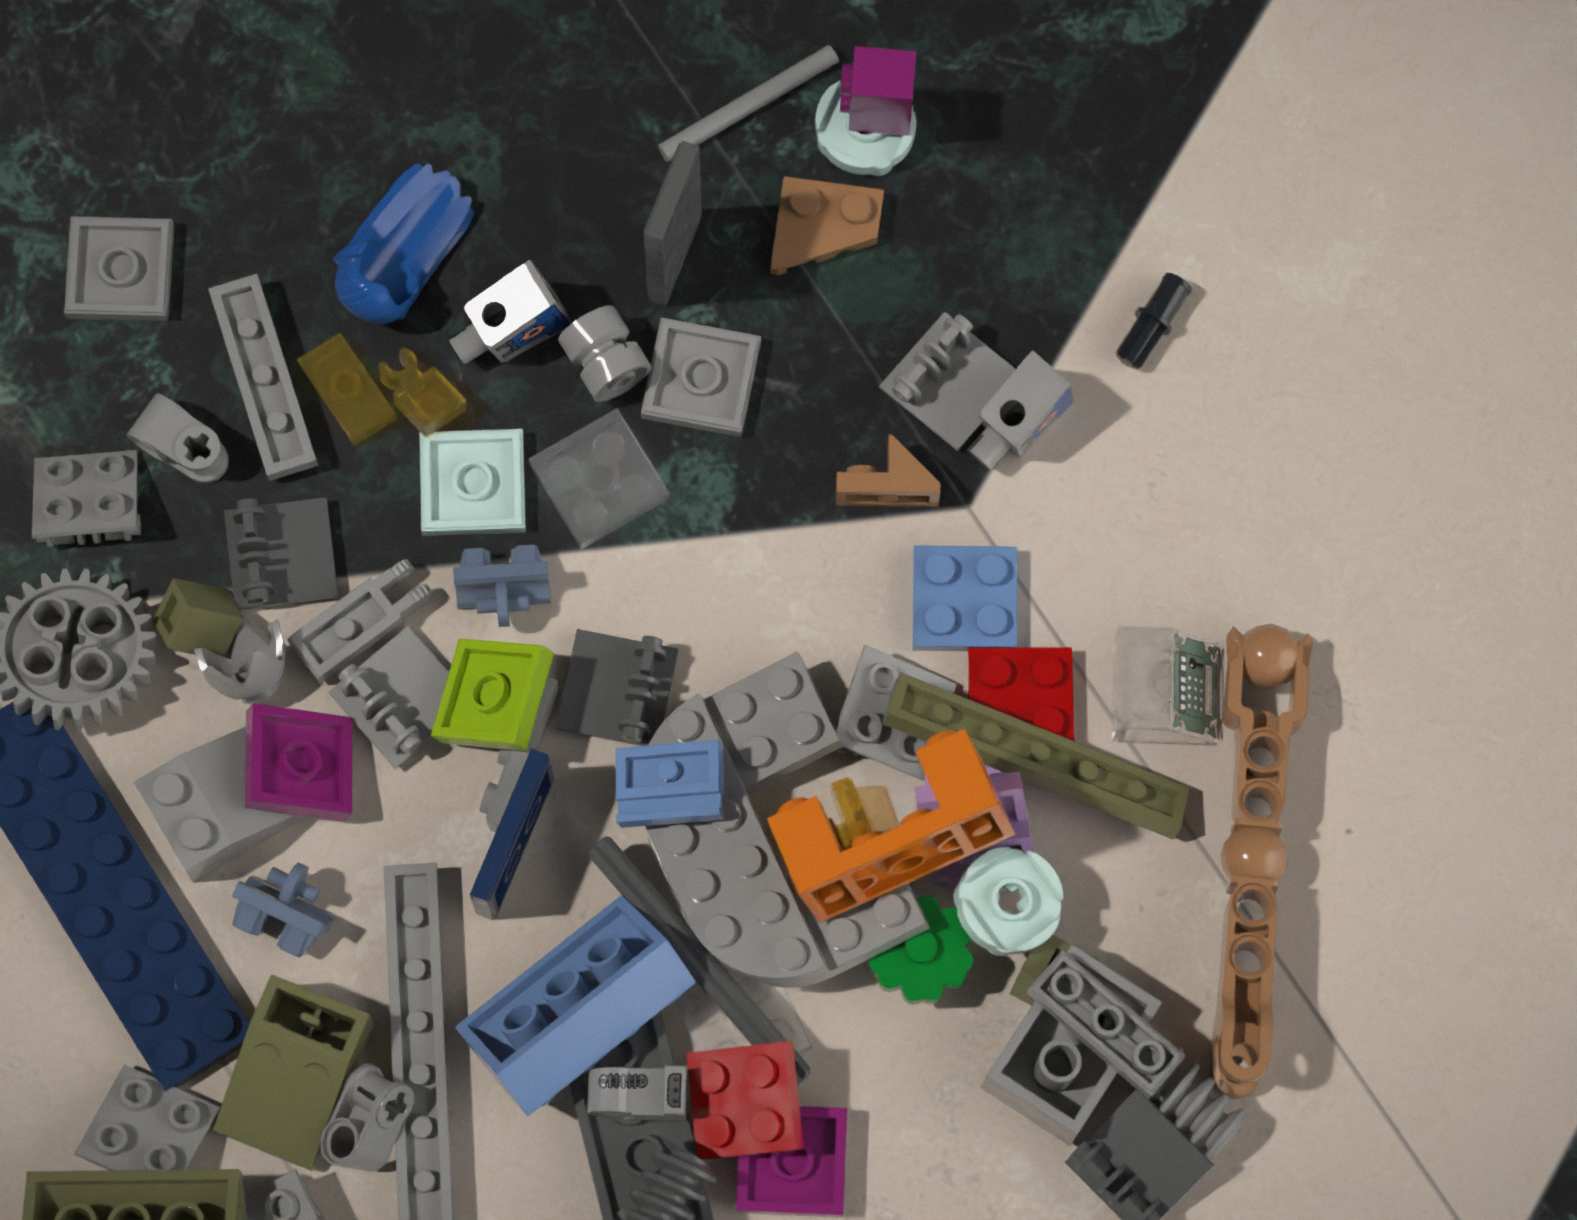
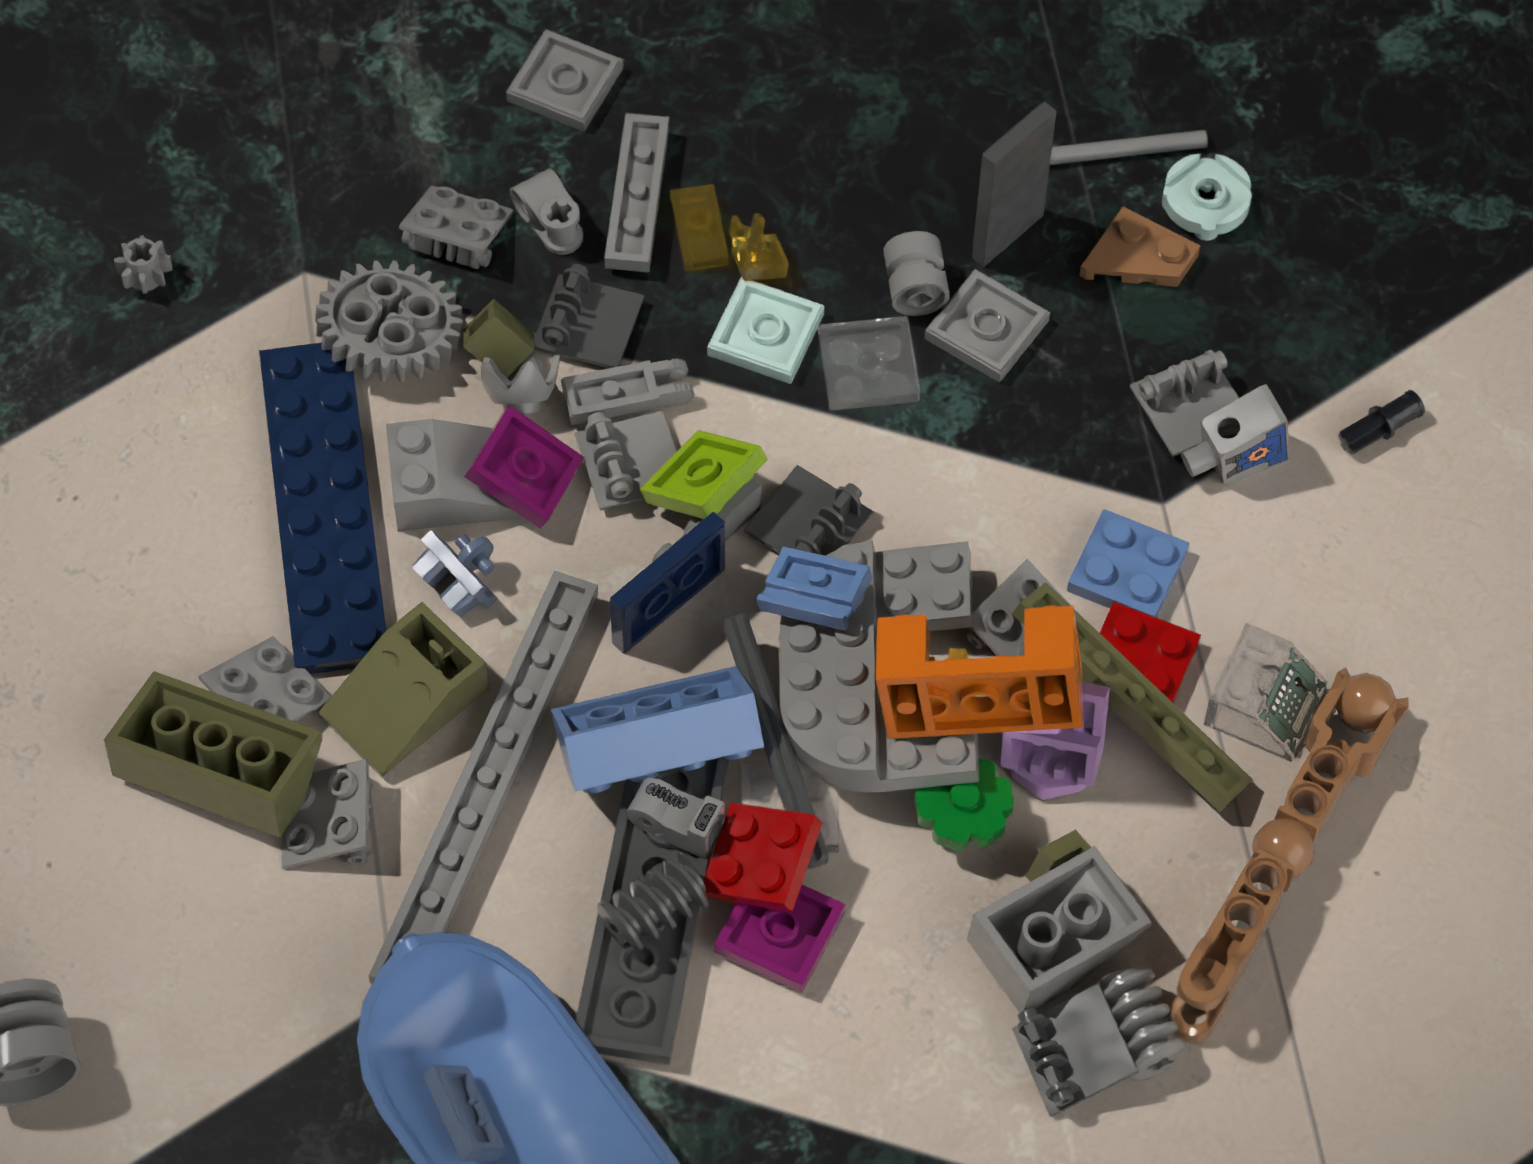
camera: 25 degrees right, 15 degrees down
(366, 1121) = (441, 751): light grey piece -> none
(401, 244) = (792, 139): blue hair -> none
(501, 586) = (751, 406): sand blue hips -> none
(528, 311) = (854, 216): torso -> none
(879, 90) = (1227, 158): magenta brick -> none
(903, 485) = (1109, 460): medium nougat slope -> none
(1002, 930) = (1043, 813): light aqua plate -> none
(1130, 1048) = (1104, 937): light grey tile -> none

